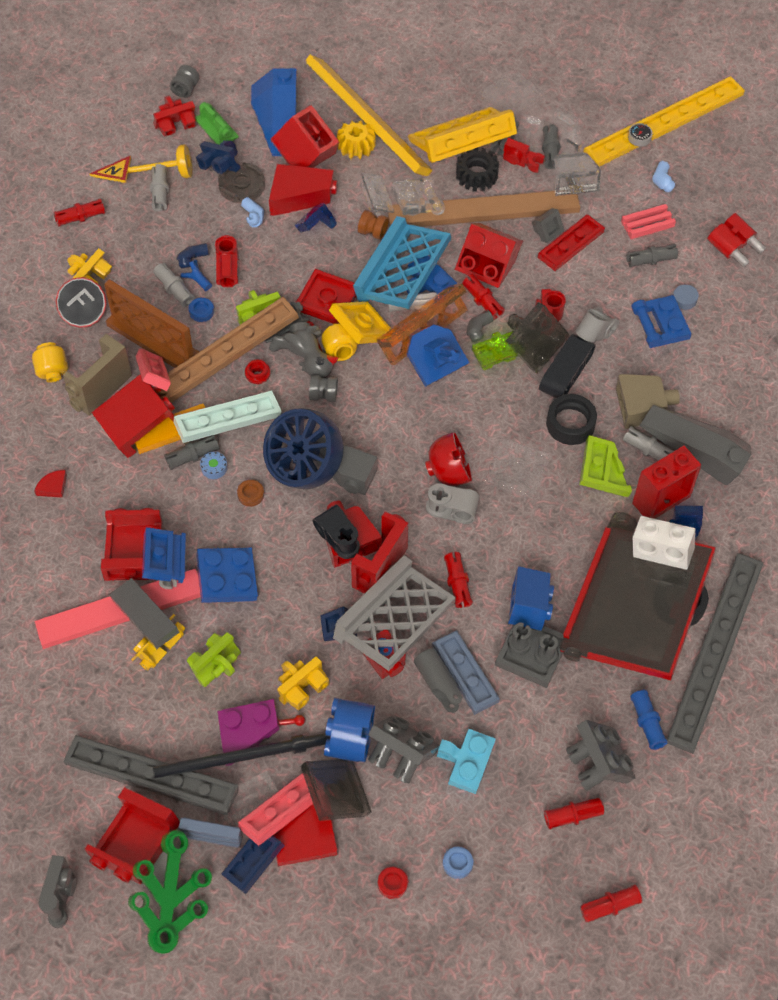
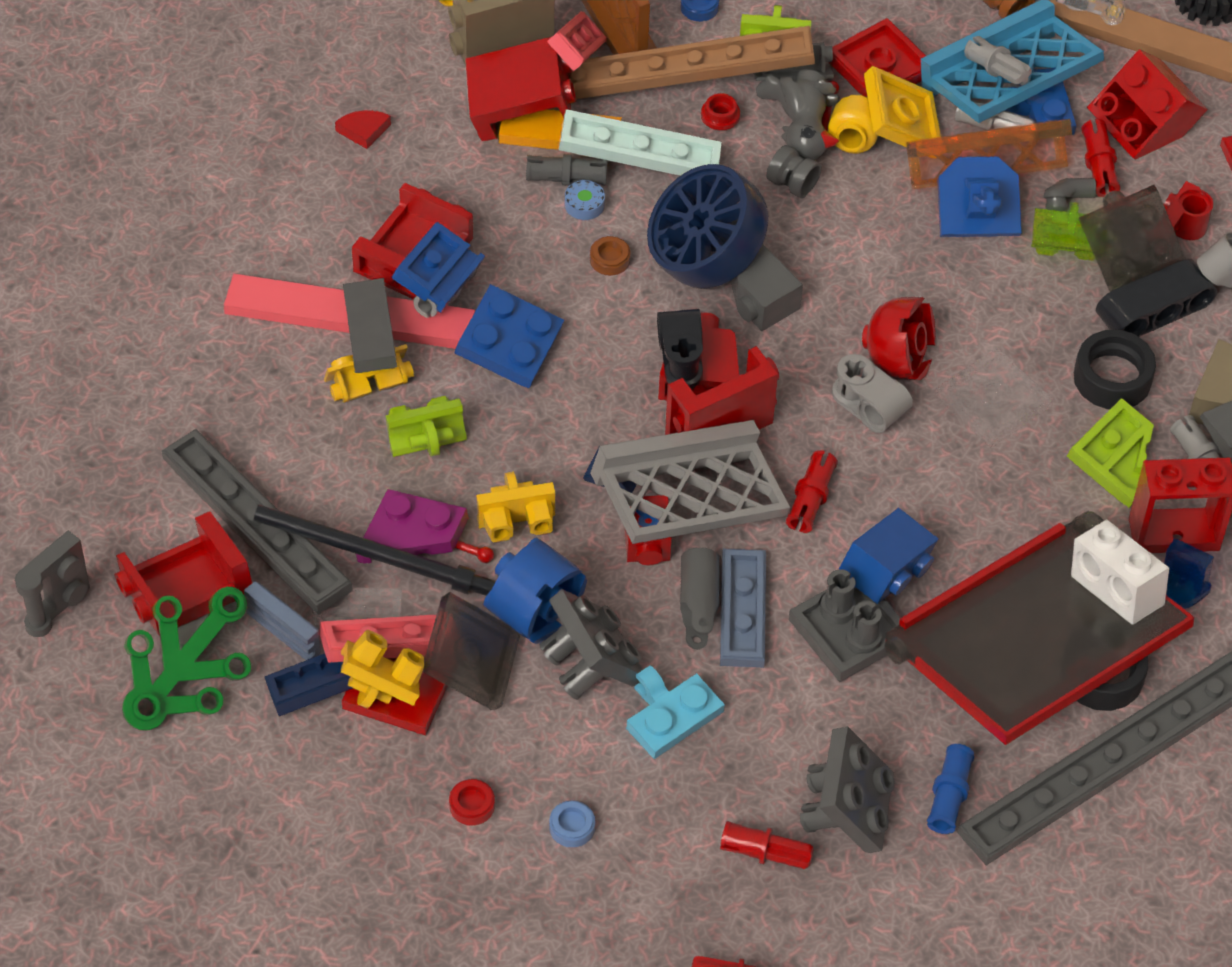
camera: 30 degrees right, 5 degrees down
(294, 837) = (379, 676): none -> yellow hips
(399, 267) = (997, 61): none -> light grey axle

